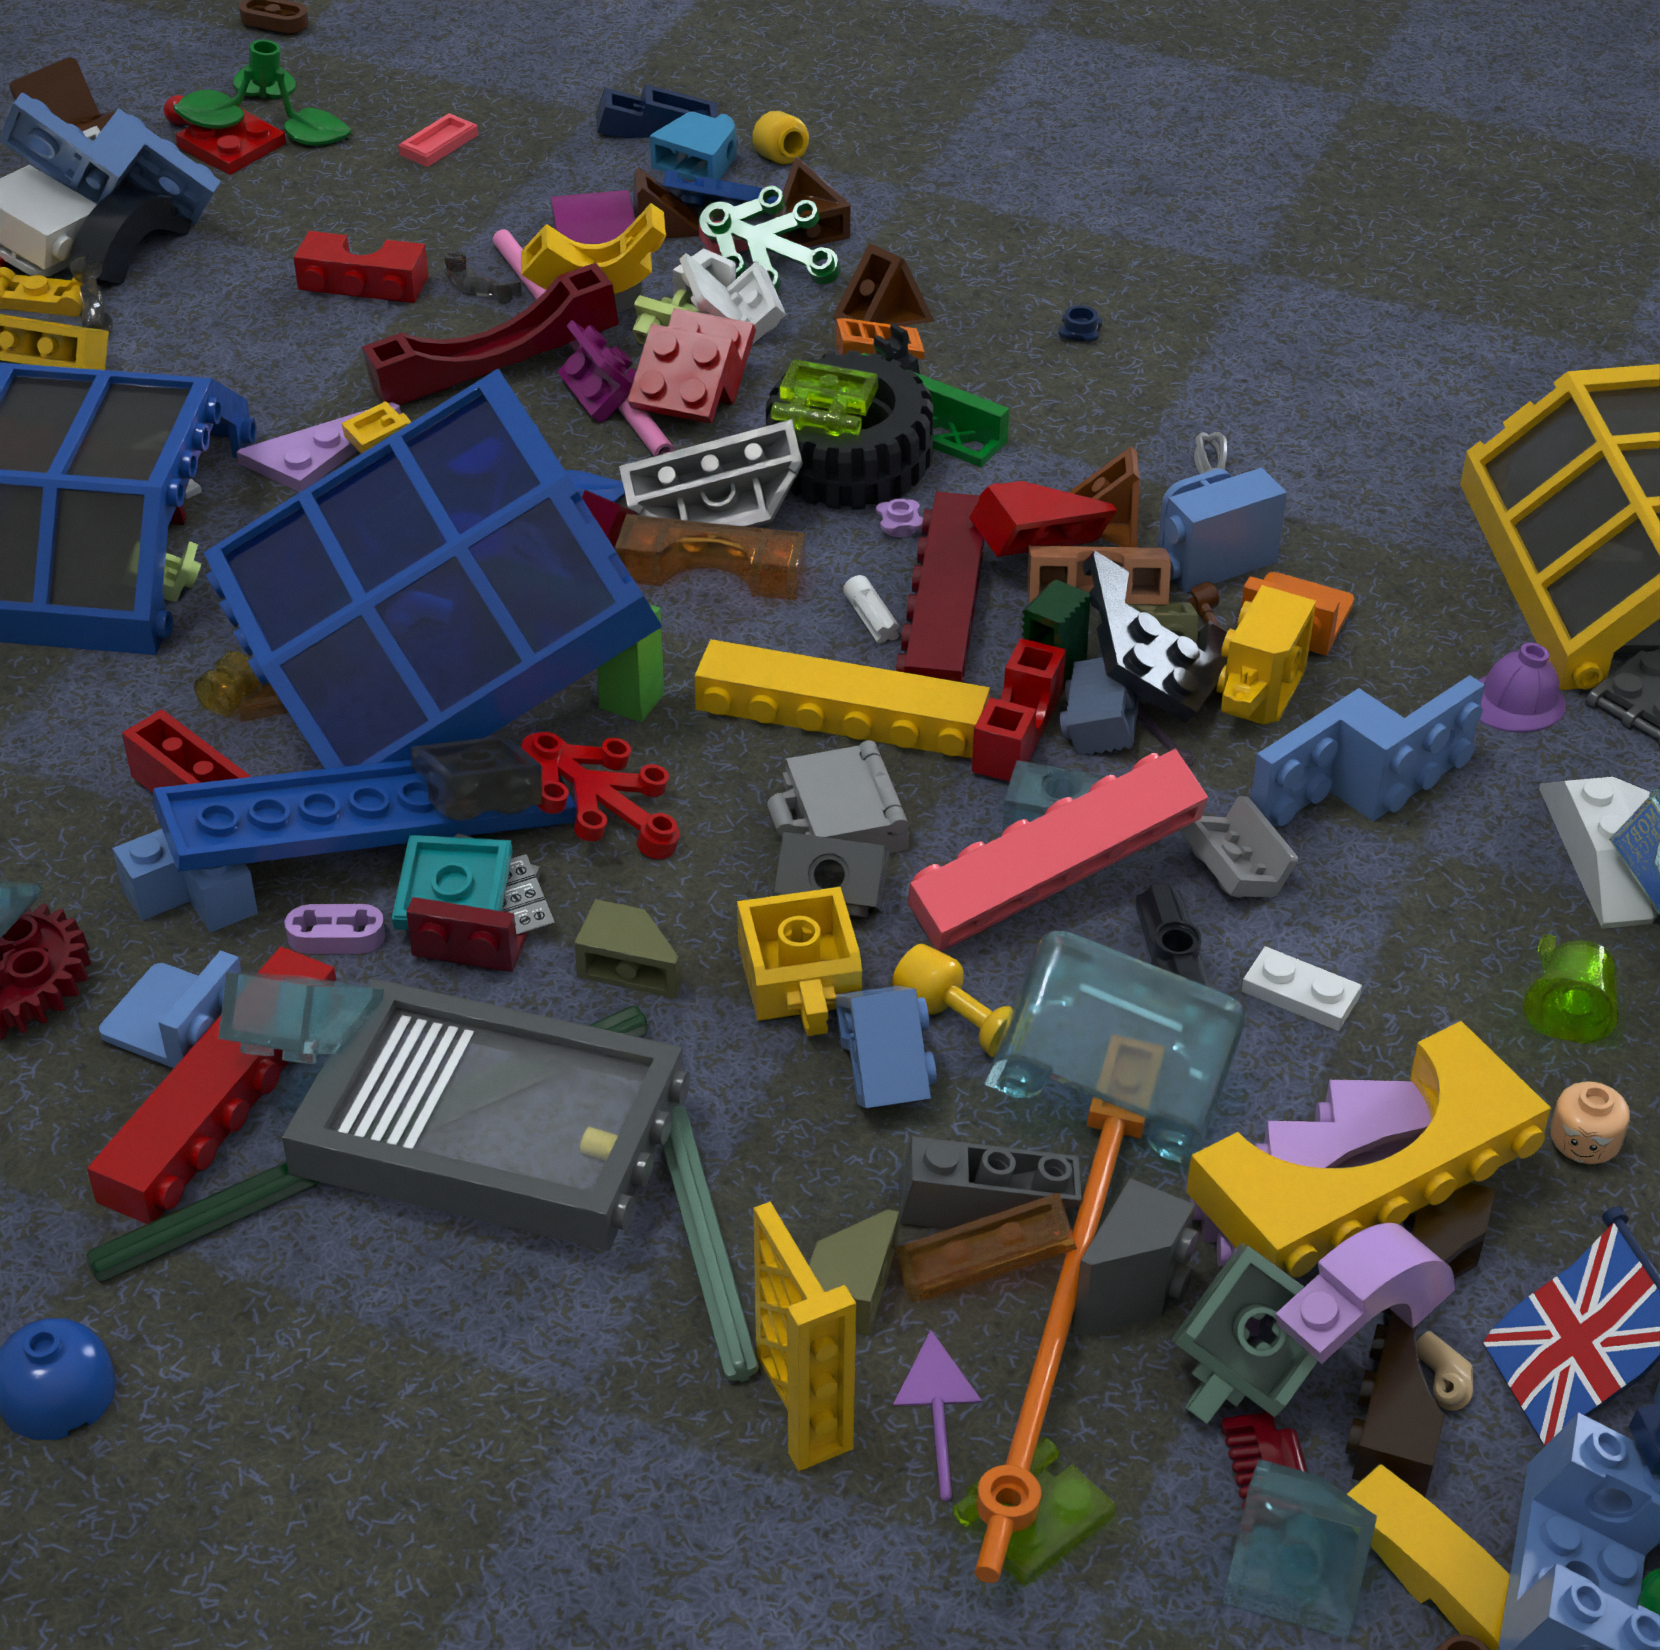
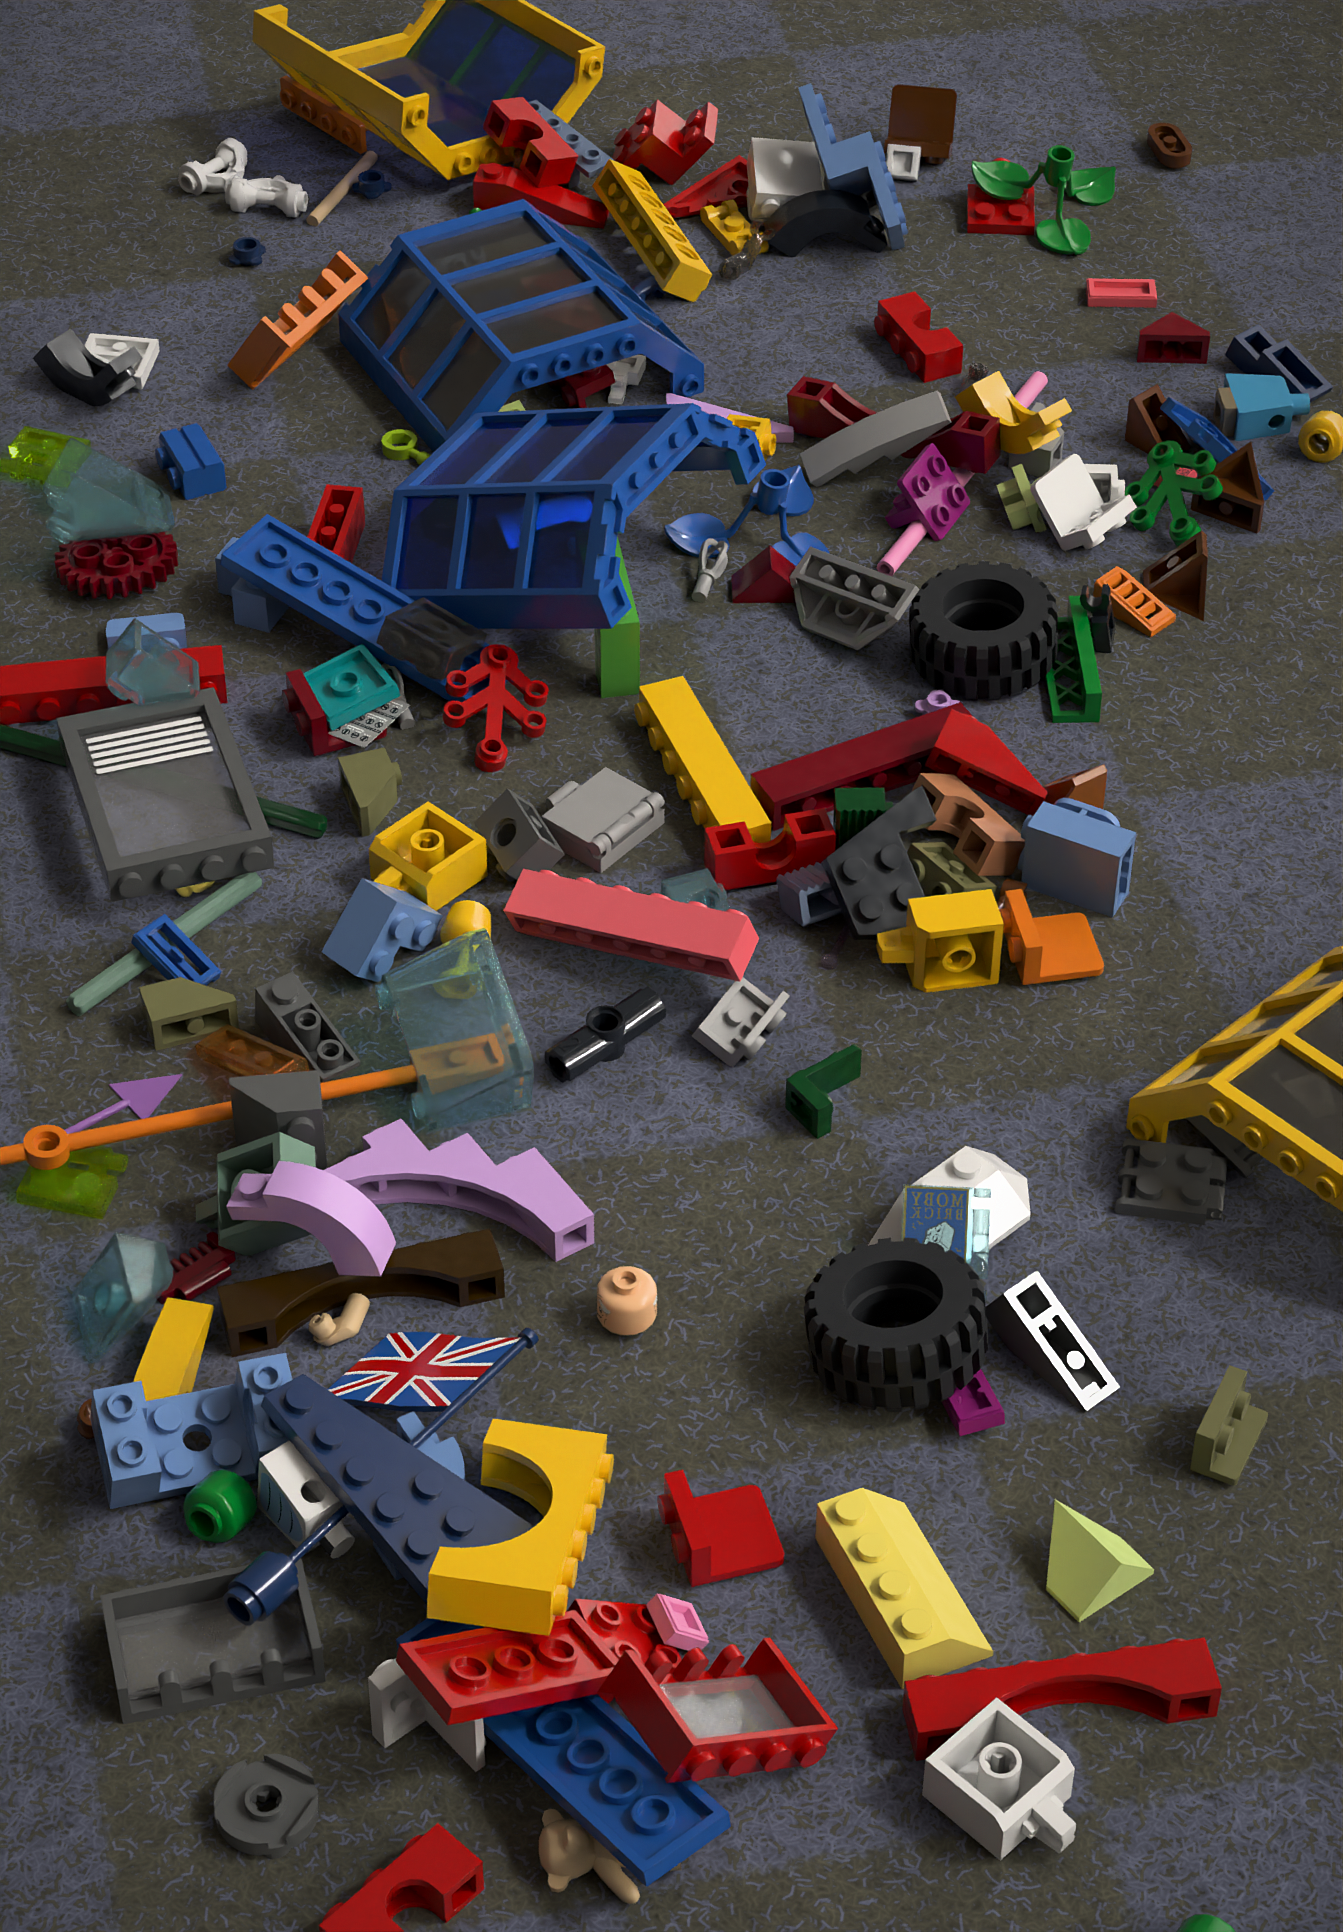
camera: 55 degrees right, 0 degrees up
(87, 671) = (402, 452): none -> lime piece
(335, 928) = (271, 670): lavender beam -> none
(515, 331) = (878, 435): none -> light grey slope
(557, 142) = (1173, 341): none -> dark red slope
(593, 216) = (1102, 406): magenta slope -> none
(685, 161) = (1225, 411): none -> dark tan tile
(691, 365) = (960, 522): bracket -> none
(738, 1247) = (168, 958): none -> blue tile
(763, 558) = (768, 614): clear orange arch -> none
(804, 1344) = (41, 989): yellow fence -> none
(825, 387) = (970, 585): clear neon green plate -> none
(871, 609) = (825, 734): white piece -> none
(1080, 324) = (1281, 690): dark blue plate -> none
(1200, 457) = (1172, 838): light grey piece -> none
(1301, 988) = (643, 1114): white plate -> none
(1301, 1212) = (533, 1223): yellow arch -> none
(1367, 753) = (899, 1046): medium blue bracket -> none
(1383, 862) = (809, 1088): none -> dark green bracket
(1522, 691) = (1085, 1103): medium lavender hat -> none
(1576, 993) = (758, 1244): clear neon green hat -> none

